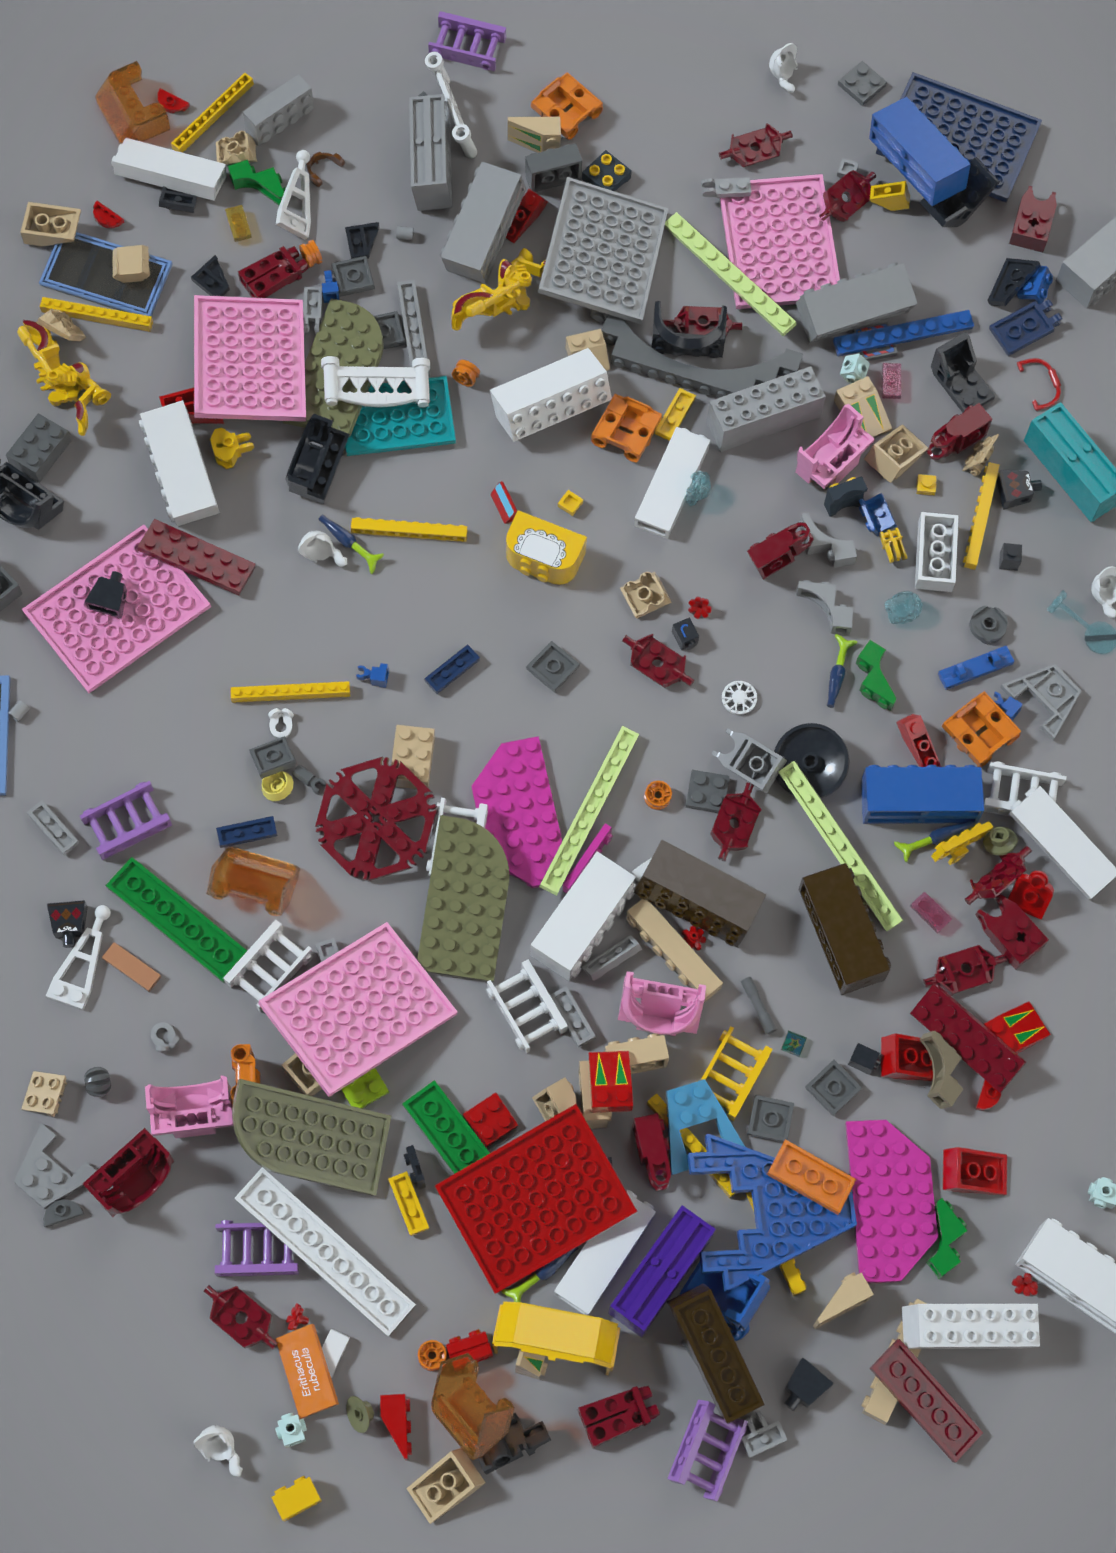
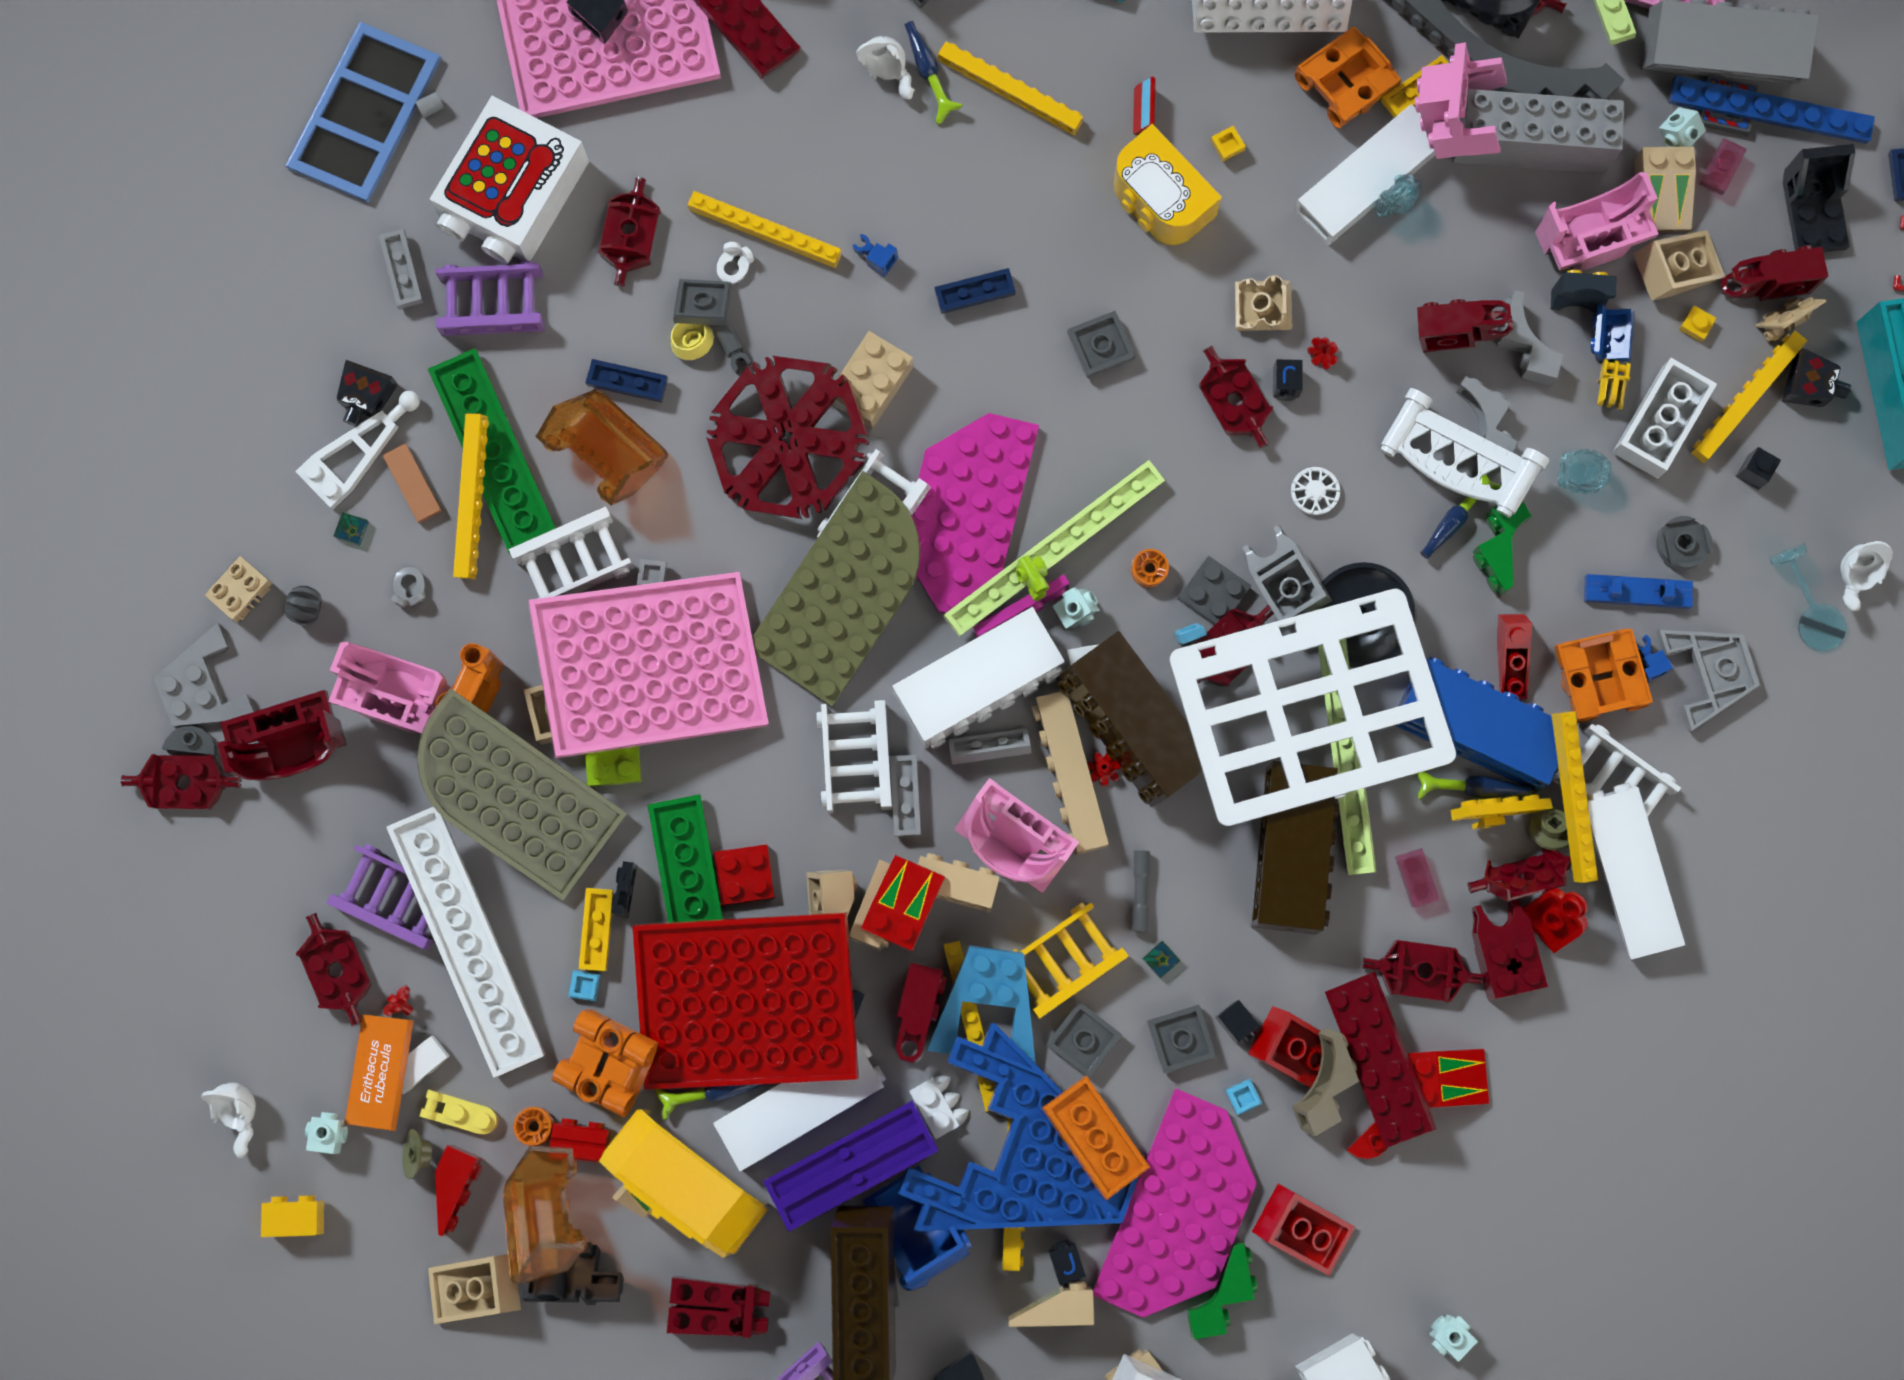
camera: 30 degrees right, 10 degrees up
(52, 1242) = (161, 776): none -> dark red plate
(101, 736) = (508, 182): none -> brick
(103, 1017) = (351, 528): none -> tile
(178, 955) = (470, 496): none -> yellow piece
(201, 747) = (631, 250): none -> dark red plate
(376, 1372) = (460, 1113): none -> light yellow plate
(418, 1245) = (584, 985): none -> medium azure tile
(476, 1286) = (623, 1070): none -> orange piece
(586, 831) = (1033, 573): none -> lime plate
(618, 844) = (1077, 608): none -> light aqua brick
(697, 413) = (1444, 100): none -> bright pink piece
(698, 1206) = (937, 1106): none -> white plate
(705, 824) = (1189, 633): none -> medium azure tile
(786, 781) = (1312, 629): none -> white door
(833, 1269) = (1066, 1262): none -> black brick
(862, 626) = (1516, 471): none -> white piece
(892, 1106) = (1243, 1096): none -> medium azure tile
(1003, 811) = (1574, 796): none -> yellow piece

